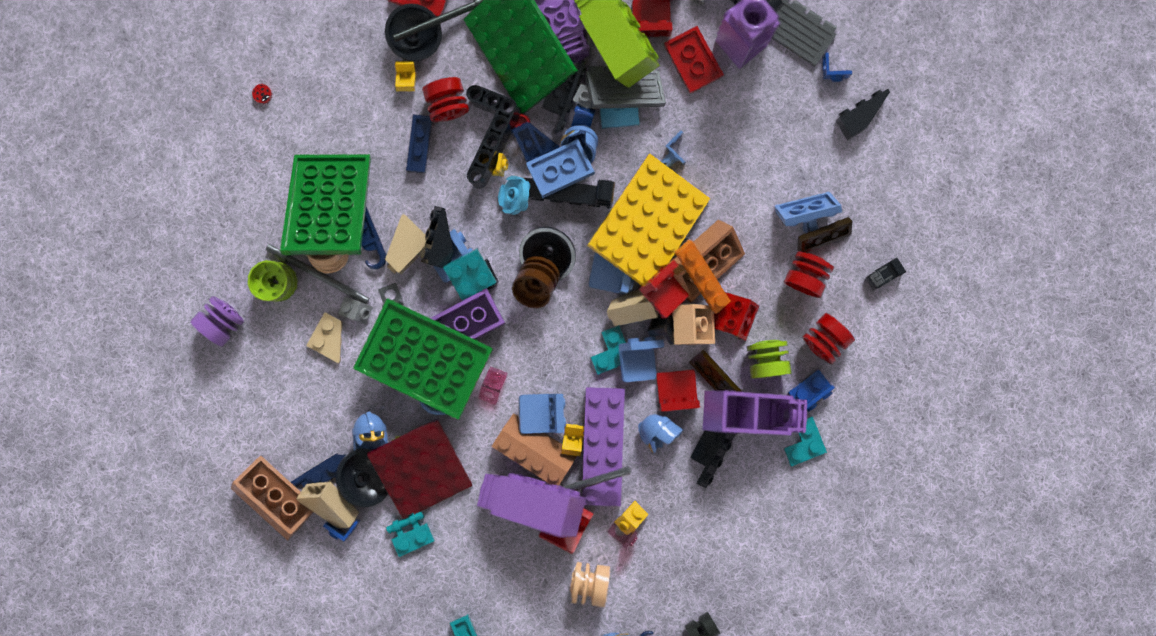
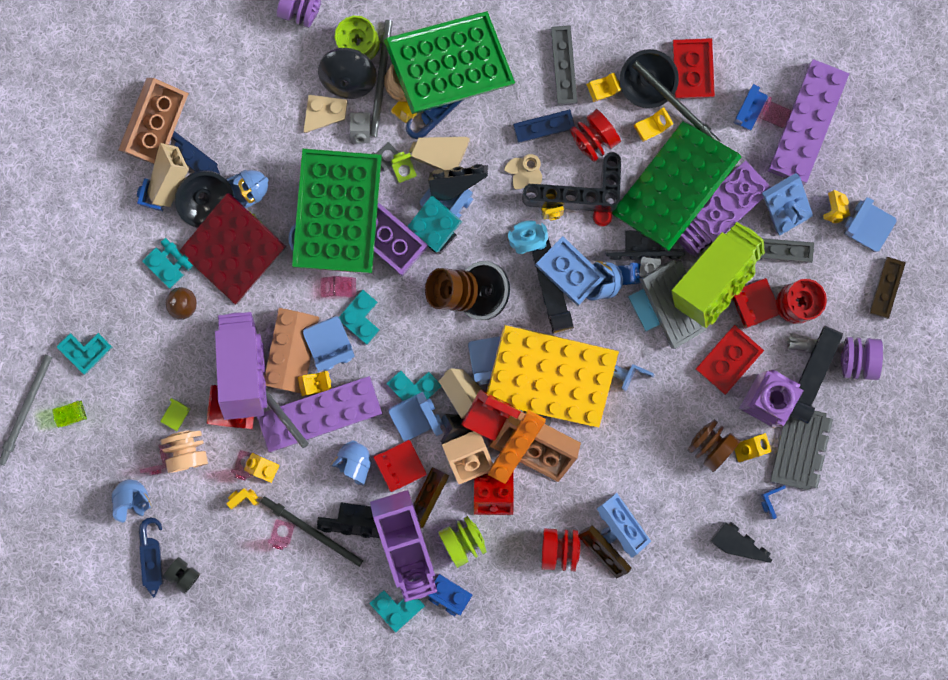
camera: 70 degrees right, 0 degrees up
(293, 297) = (349, 66): none -> black dish
(355, 264) = (403, 111): none -> yellow bracket
(370, 104) = (564, 65): none -> dark grey plate
(399, 282) = (399, 160): none -> lime bracket
(451, 535) = (181, 303): none -> reddish brown piece
(455, 179) = (522, 173): none -> tan plate
(456, 47) = (652, 125): none -> yellow bracket
(526, 380) = (355, 317): none -> teal plate
(532, 141) = (587, 235): dark blue wing -> none
(552, 579) = (175, 414): none -> lime bracket
(596, 615) = (156, 469): none -> clear pink bracket
(650, 551) = (237, 497): none -> yellow bracket
(676, 516) = (279, 510): none -> pearl dark grey bar
(706, 526) = (280, 542): none -> clear pink bracket
(766, 100) = (713, 445): none -> reddish brown wheel
(779, 71) = (752, 448): none -> yellow bracket
(825, 342) = (504, 591): red wheel -> none
(885, 274) = (590, 625): leg -> none

